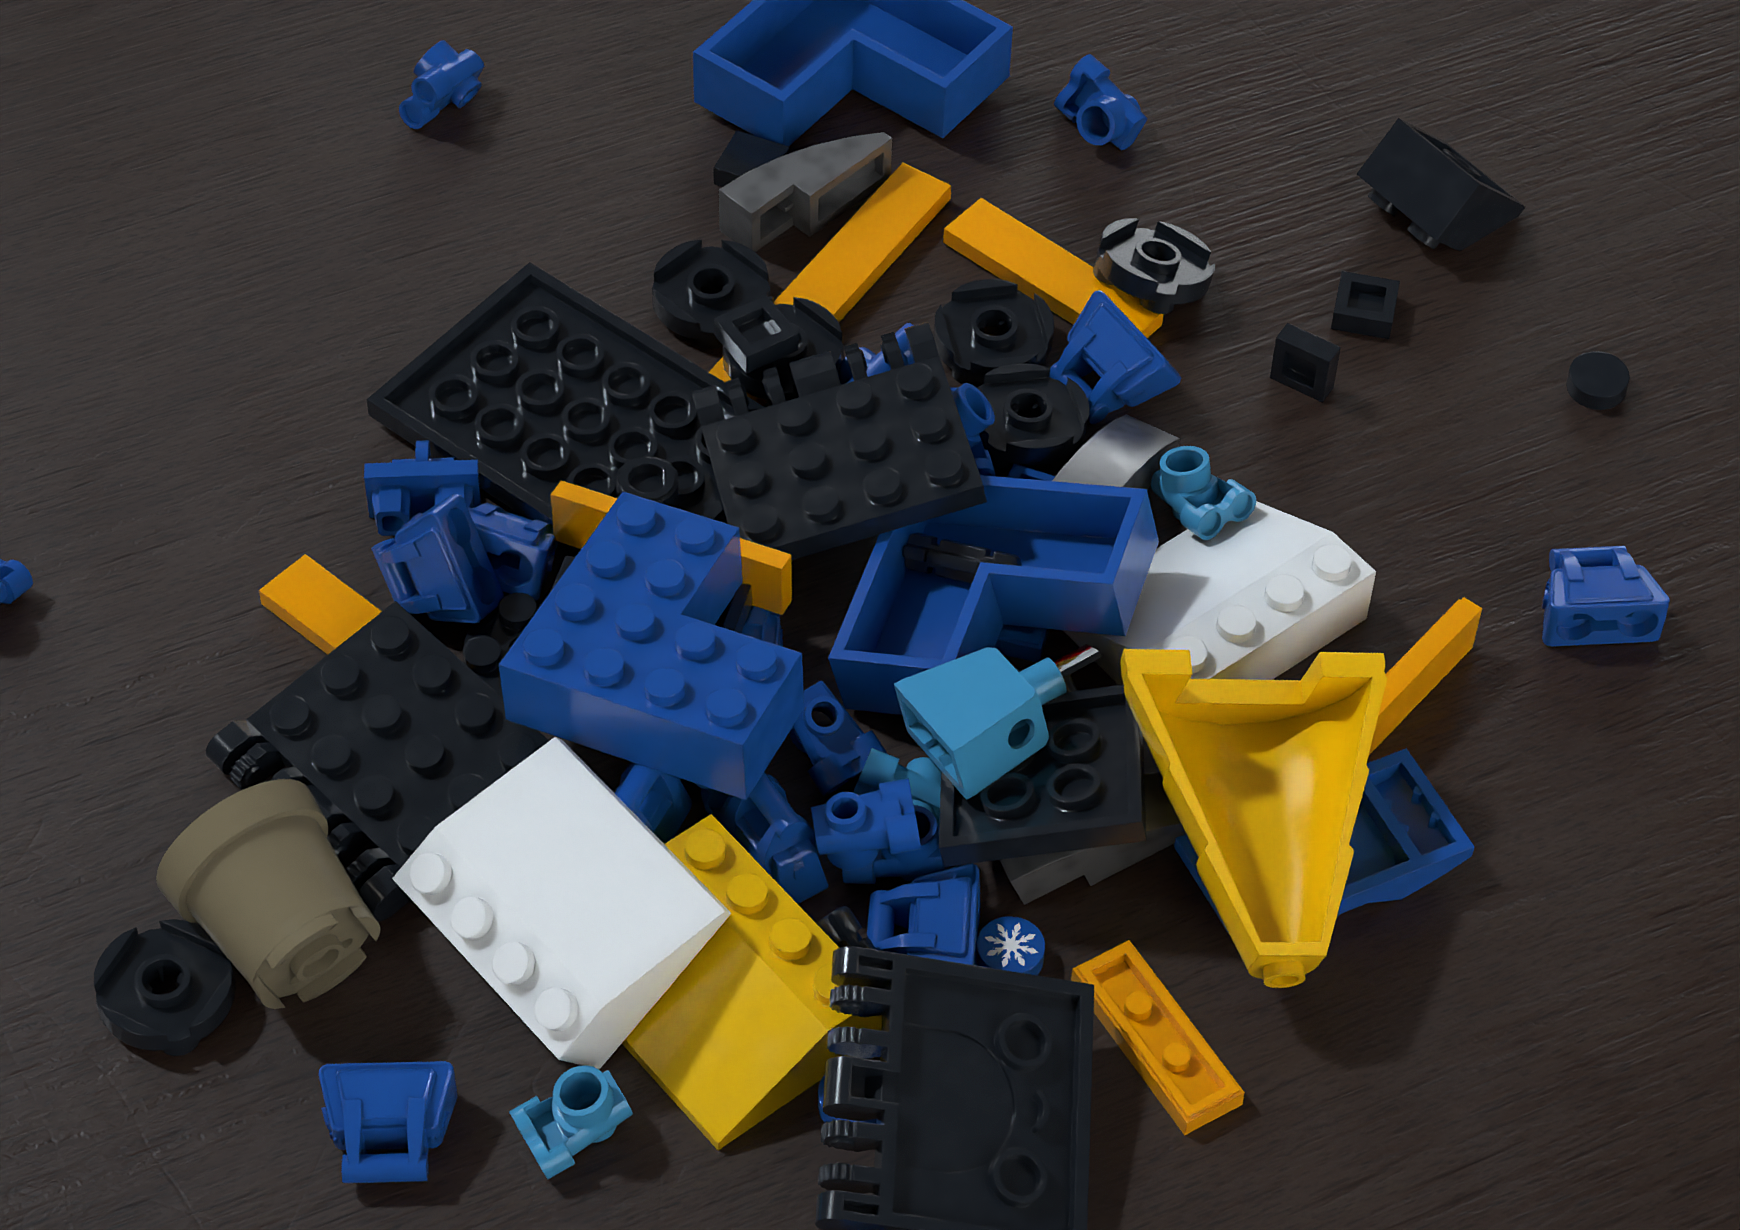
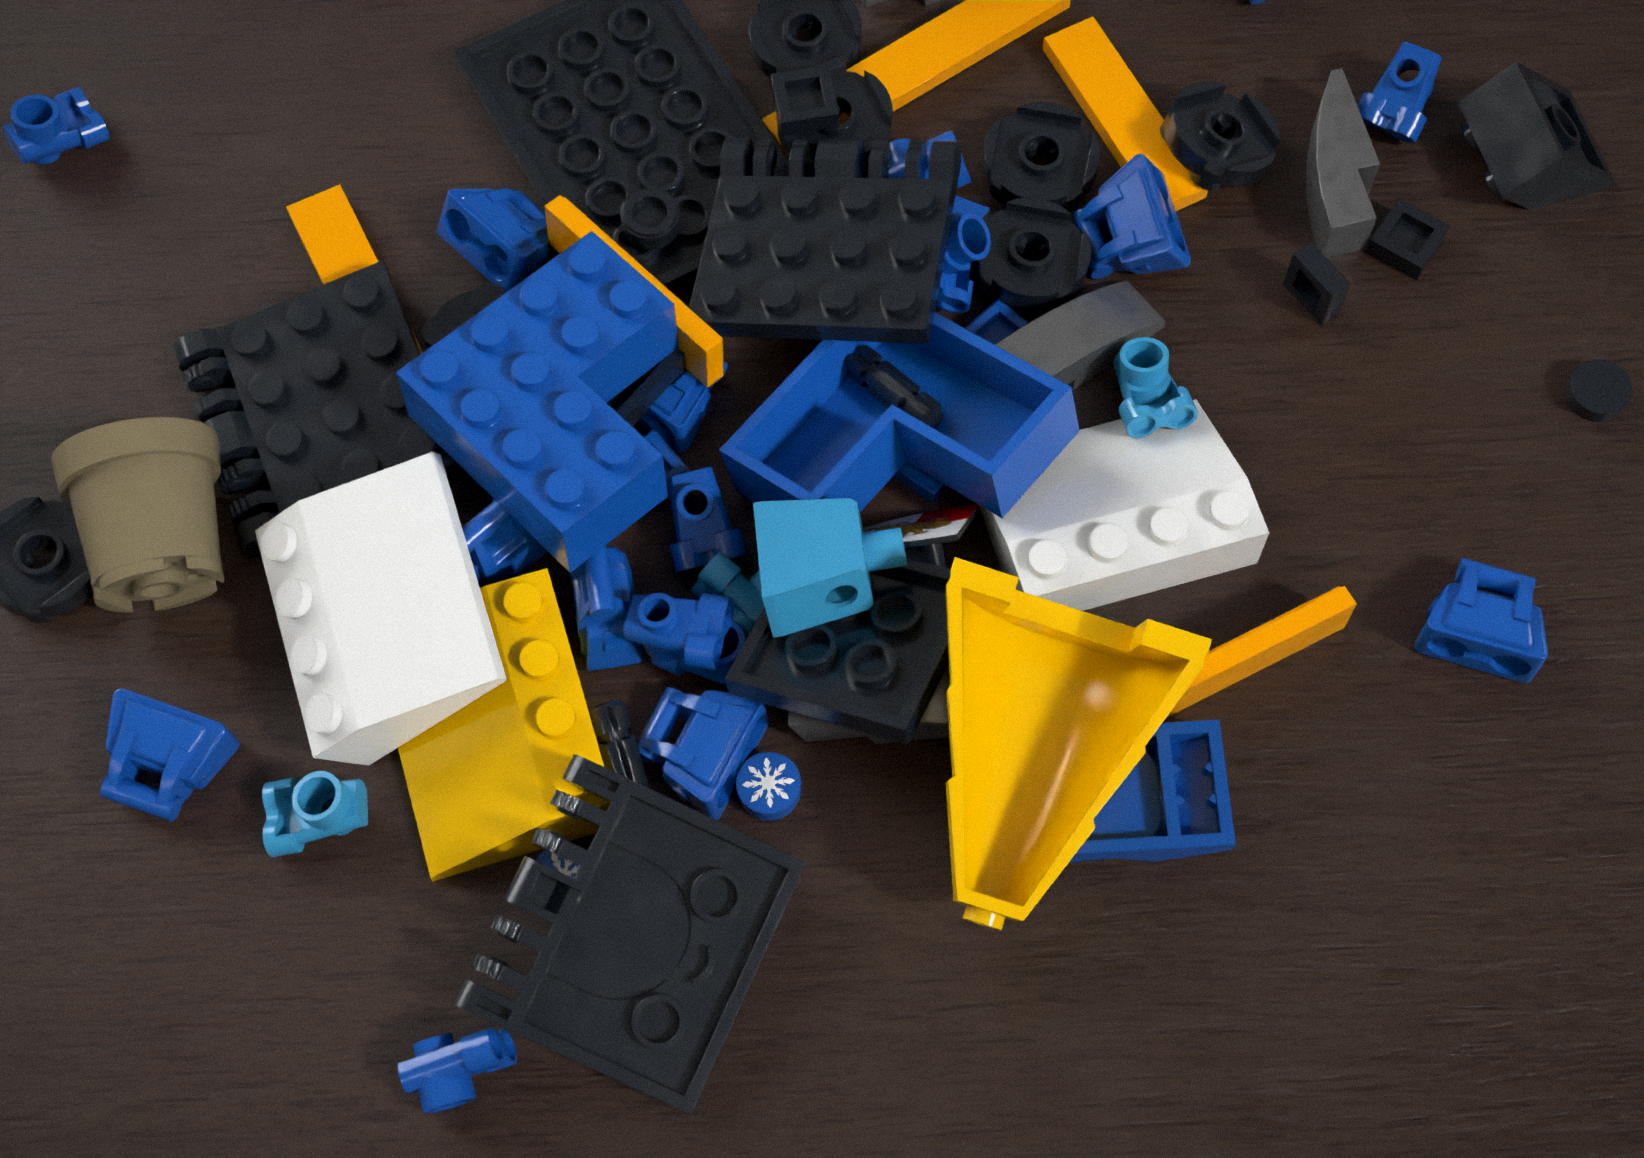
camera: 25 degrees right, 15 degrees up
(415, 485) = (461, 149): blue hips -> none
(445, 564) = (436, 240): blue piece -> none
(1159, 1038) = (861, 920): light orange tile -> none
(1277, 260) = (1340, 172): none -> flat silver slope
(1300, 191) = (1398, 104): none -> blue plate

